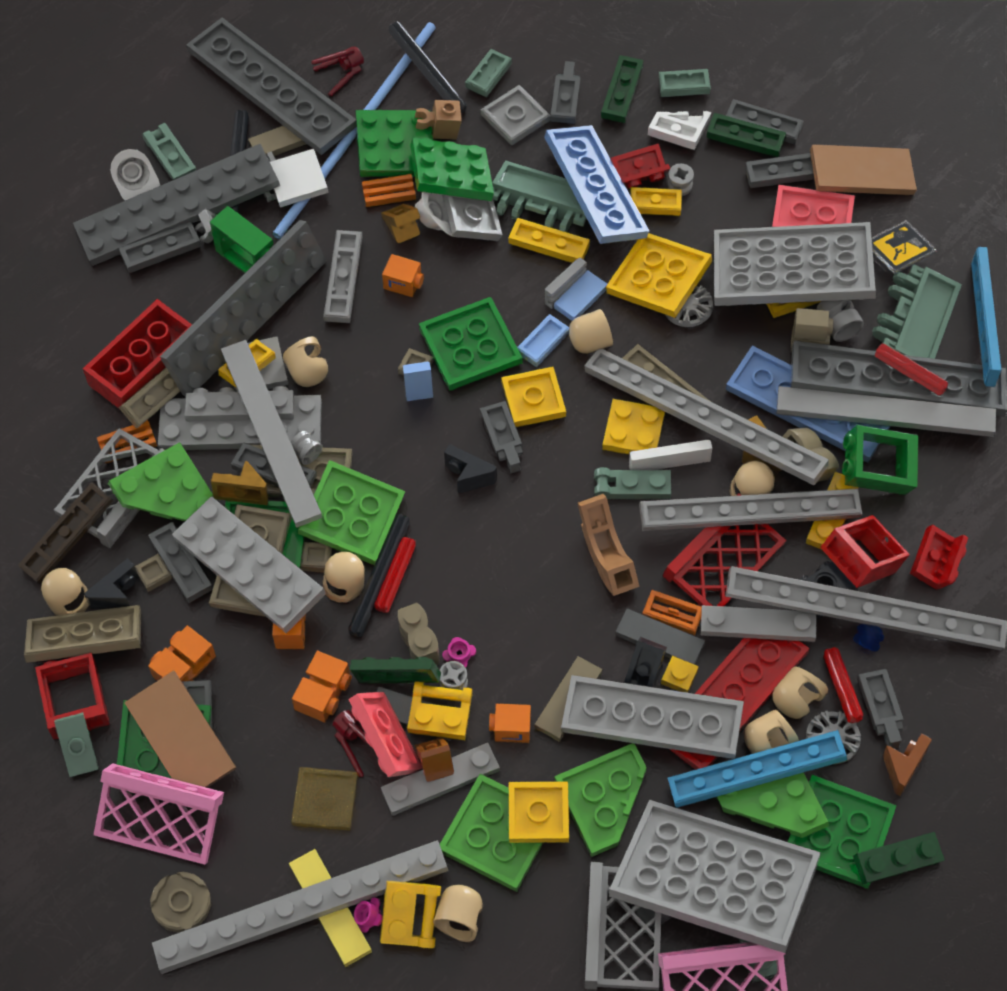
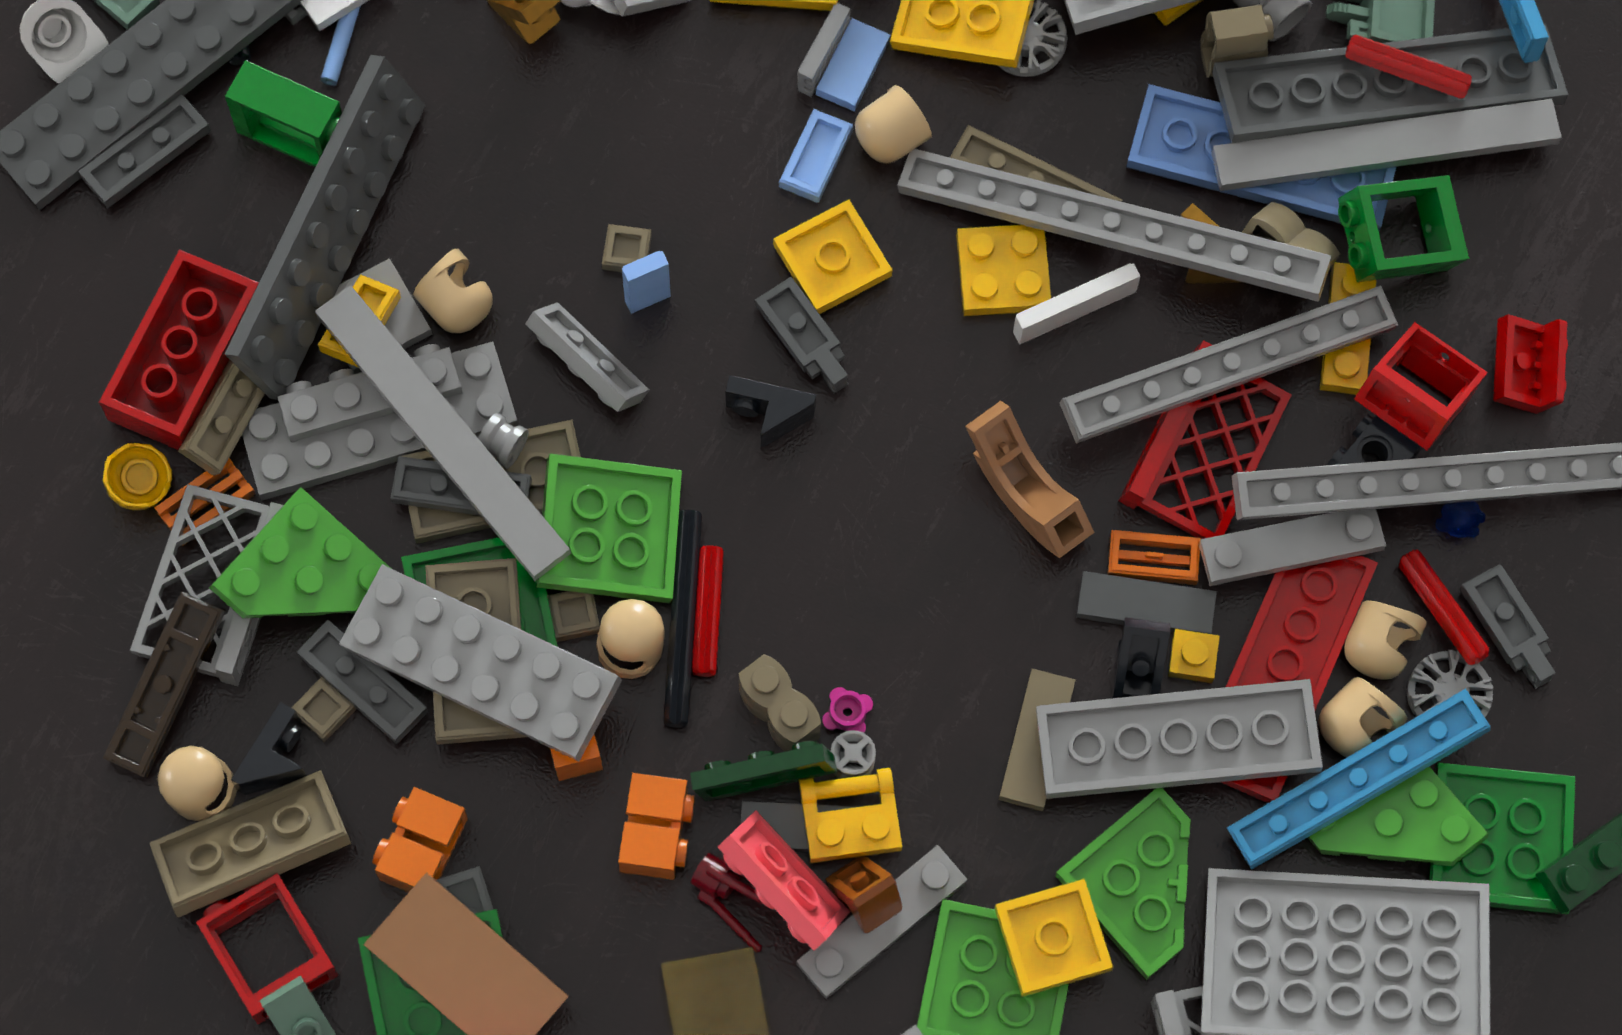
camera: 20 degrees left, 10 degrees up
(91, 417) = (137, 476): none -> yellow hair
(204, 226) = (213, 87): light grey tile -> none
(243, 488) = (435, 534): pearl gold slope -> none
(343, 276) = (462, 127): light grey plate -> none
(371, 416) = (587, 357): none -> light grey plate
(402, 275) = (559, 102): orange brick -> none
(470, 343) = (704, 191): green plate -> none
(511, 723) = (964, 804): orange brick -> none
(633, 484) = (1030, 362): sand green plate -> none
(753, 479) = (1217, 312): tan helmet -> none
(902, 766) = (1568, 715): dark orange slope -> none

